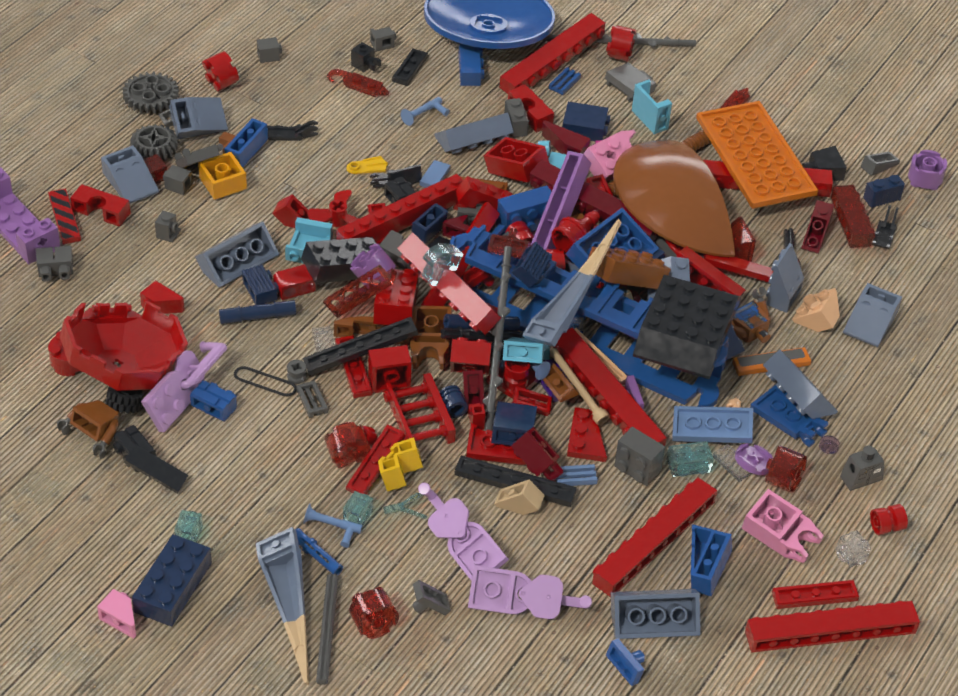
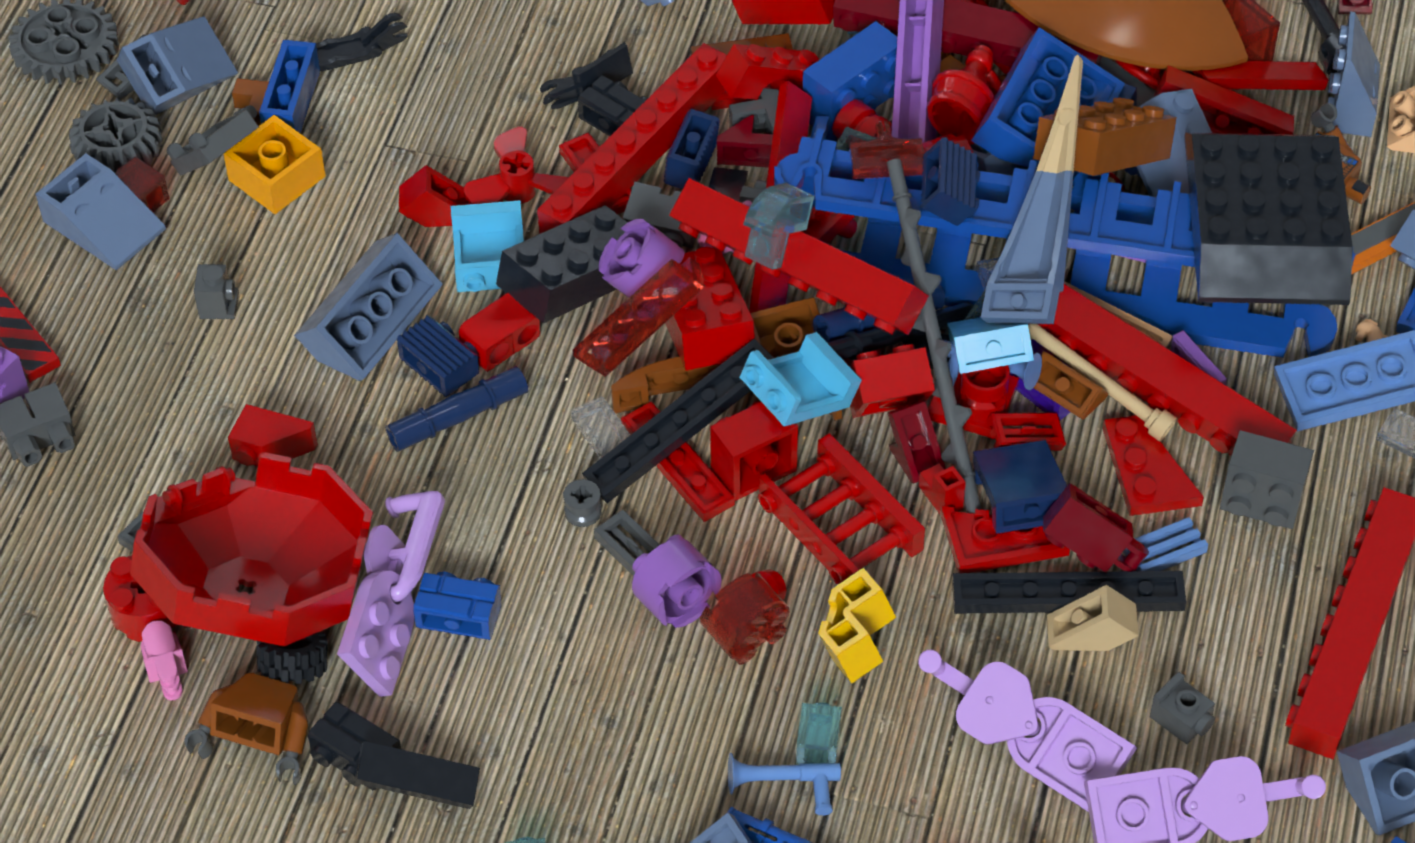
camera: 15 degrees left, 5 degrees up
(65, 383) = (163, 658): none -> bright pink arm
(89, 199) = (42, 280): red arch -> none
(177, 179) = (191, 195): dark grey brick -> none
(263, 387) = (530, 525): black piece -> none
(320, 417) = (675, 581): none -> medium lavender brick
(368, 165) = (523, 70): yellow piece -> none
(369, 468) = (802, 644): red tile -> none
(400, 506) = (890, 704): clear light blue plant -> none
(422, 343) = (802, 382): none -> medium azure panel
(435, 173) = (652, 55): medium blue tile -> none
(453, 401) = (892, 471): dark blue piece -> none
(544, 550) = (1182, 709): none -> dark grey brick
(689, 459) = (1349, 456): clear light blue brick -> none

